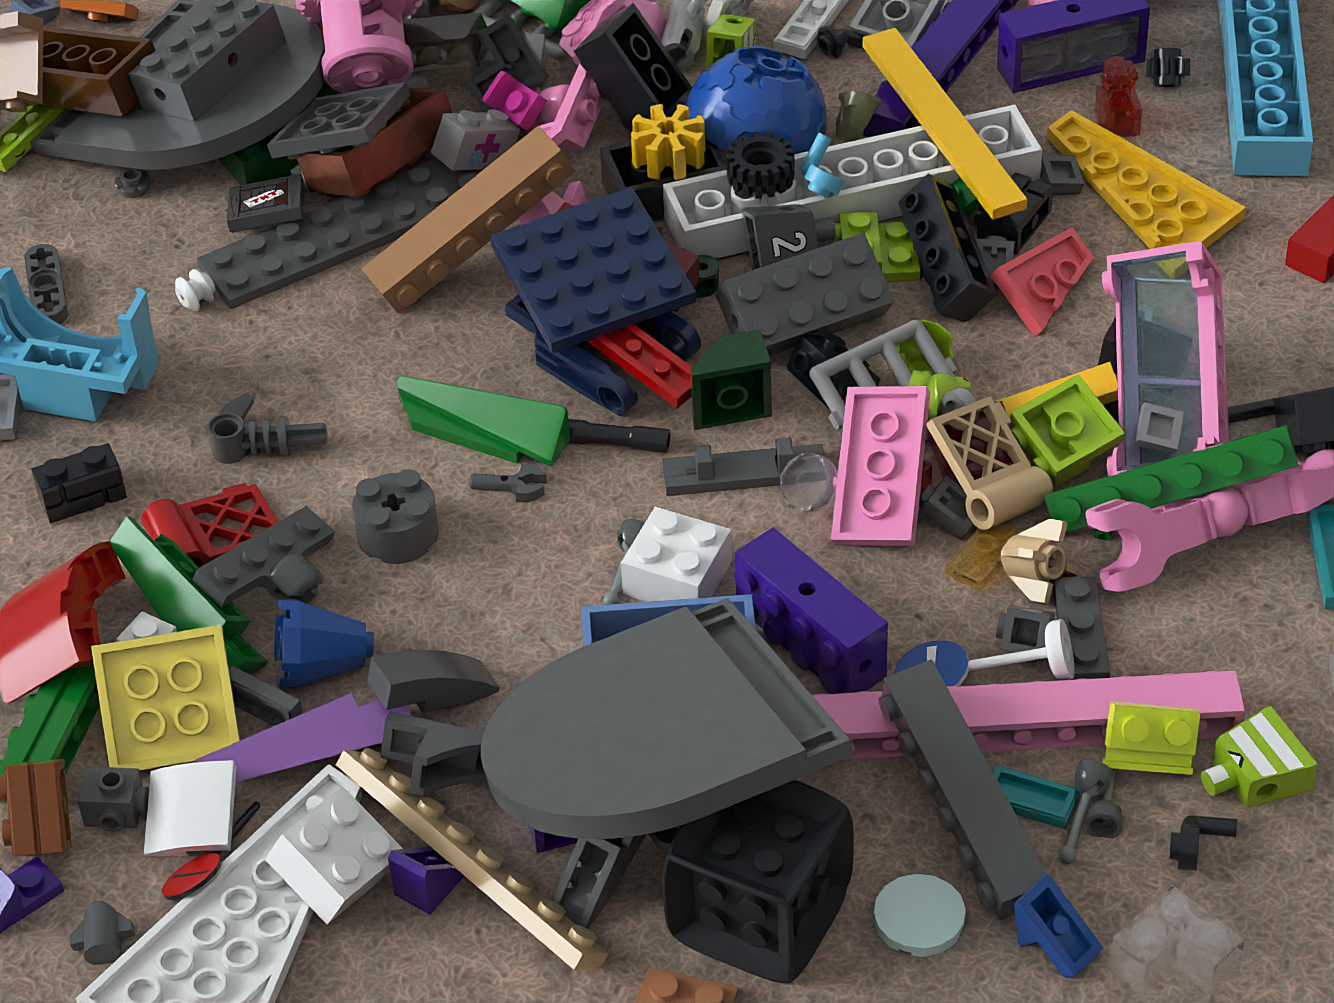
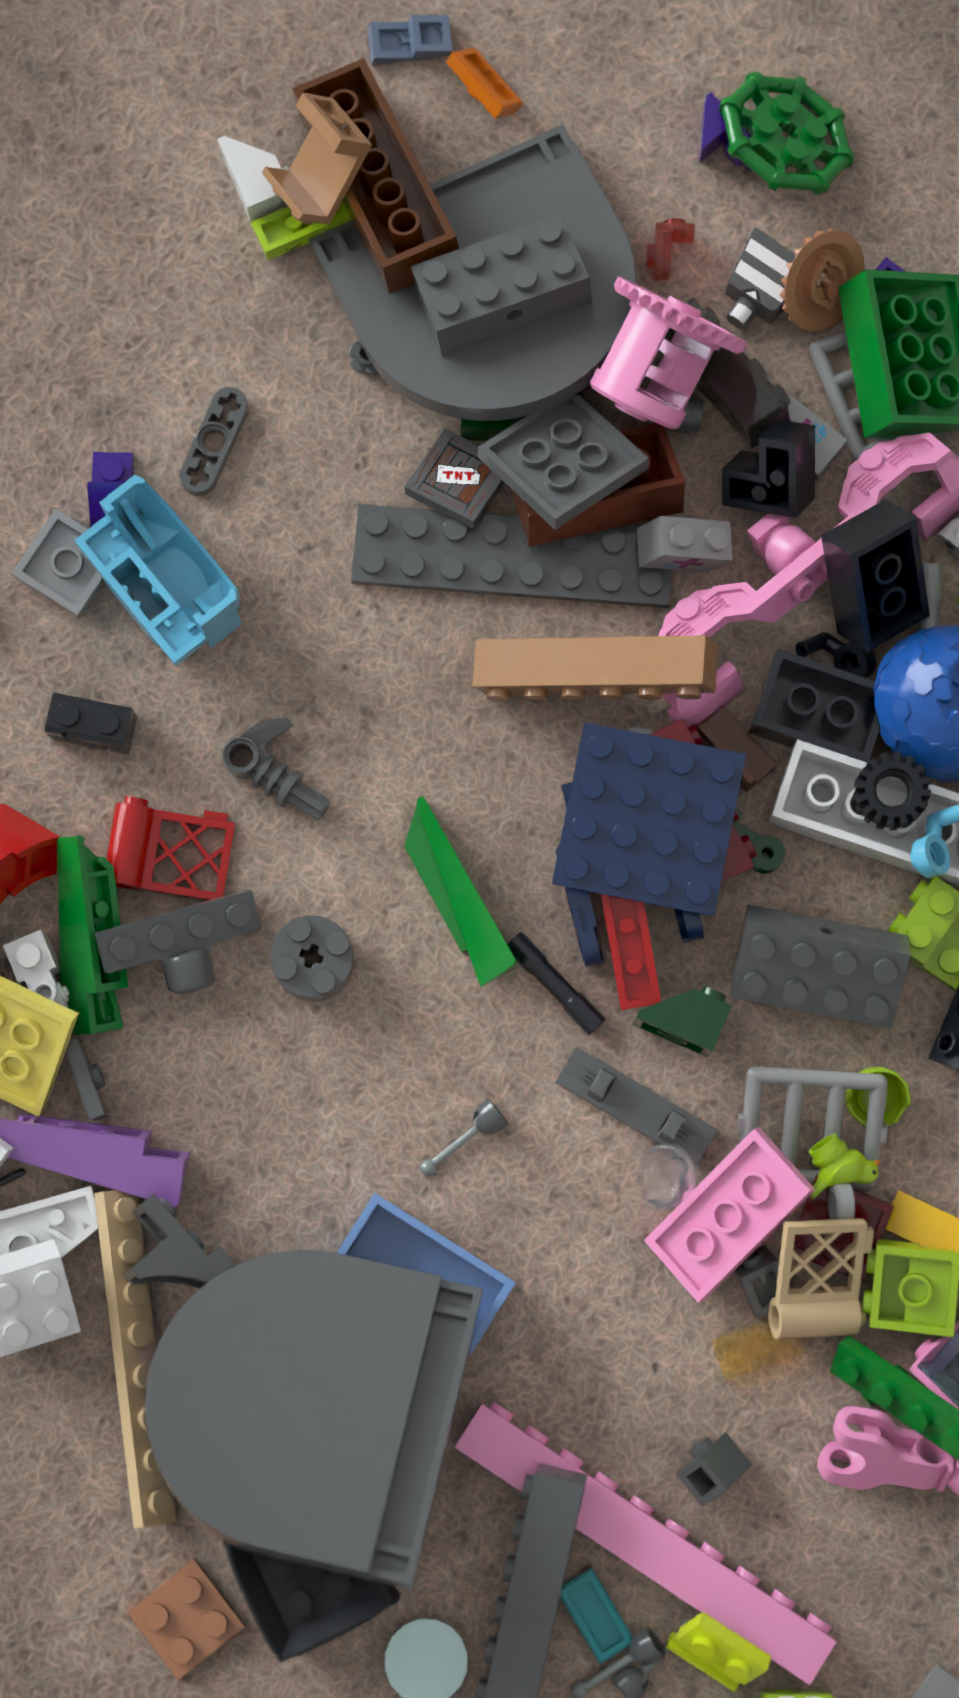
camera: 35 degrees right, 35 degrees up
(196, 289) = (329, 547): white wheel -> none
(317, 643) = (160, 1056): blue cone -> none
(422, 877) = (87, 1351): dark purple slope -> none
(429, 679) = (220, 1166): dark grey slope -> none
(514, 100) = (749, 529): dark pink bracket -> none
(516, 484) = (438, 975): dark grey bar -> none
(668, 141) = (846, 708): yellow gear -> none
(676, 558) = (499, 1178): white brick -> none
(783, 232) = (857, 880): dark grey torso -> none
(812, 614) = (556, 1359): dark purple brick -> none
(815, 350) = (791, 1041): black bracket -> none
(954, 664) = (620, 1440): piece -> none
(1035, 559) = (784, 1398): tan brick -> none
(1080, 609) = (768, 1483): dark grey plate -> none

